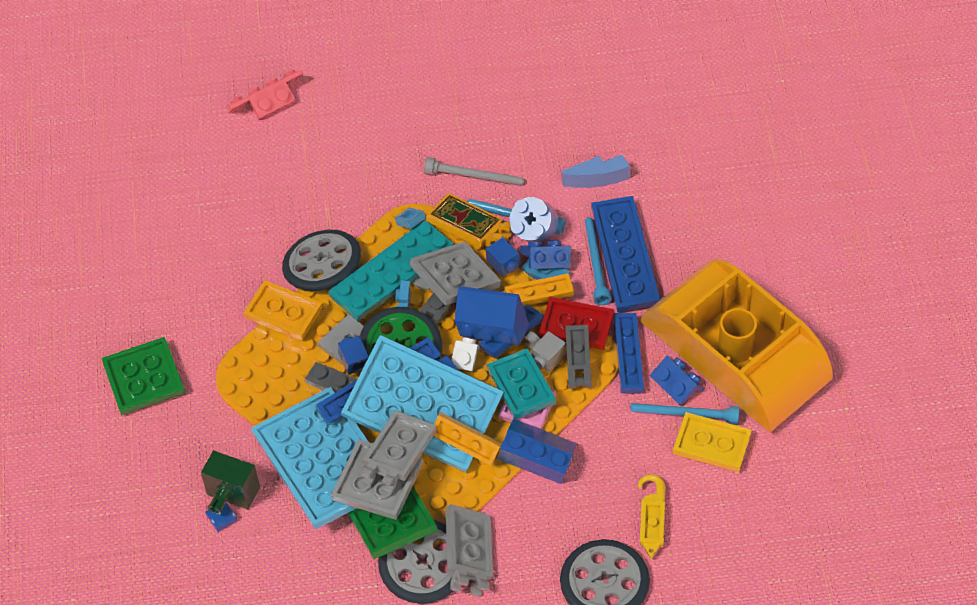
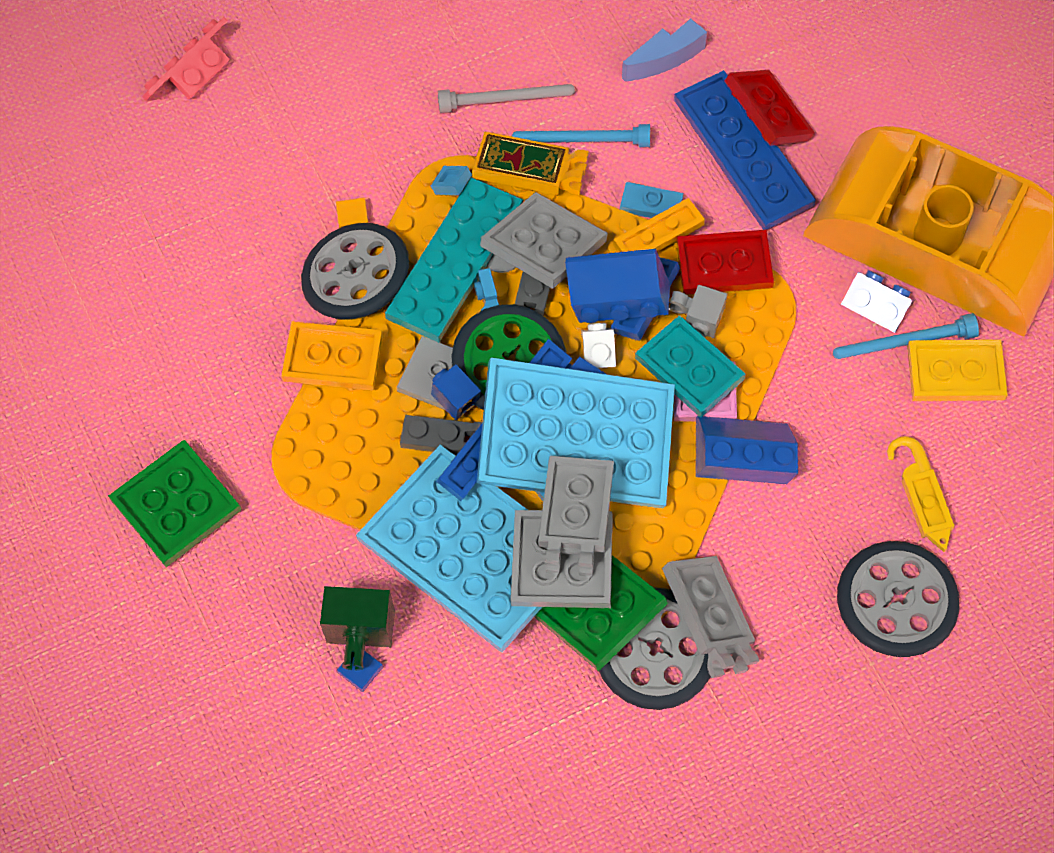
camera: 20 degrees left, 10 degrees up
(337, 221) = (351, 211): none -> light orange tile
(466, 438) = (655, 465): light orange plate -> none
(502, 257) = (594, 200): blue brick -> none
(529, 209) = (601, 128): brick -> none
(547, 256) = (649, 180): blue bracket -> none
(578, 355) = (748, 306): dark grey plate -> none
(601, 294) = (736, 213): dark azure piece -> none
(628, 353) = (803, 282): blue plate -> none
(653, 229) = (769, 107): none -> red plate

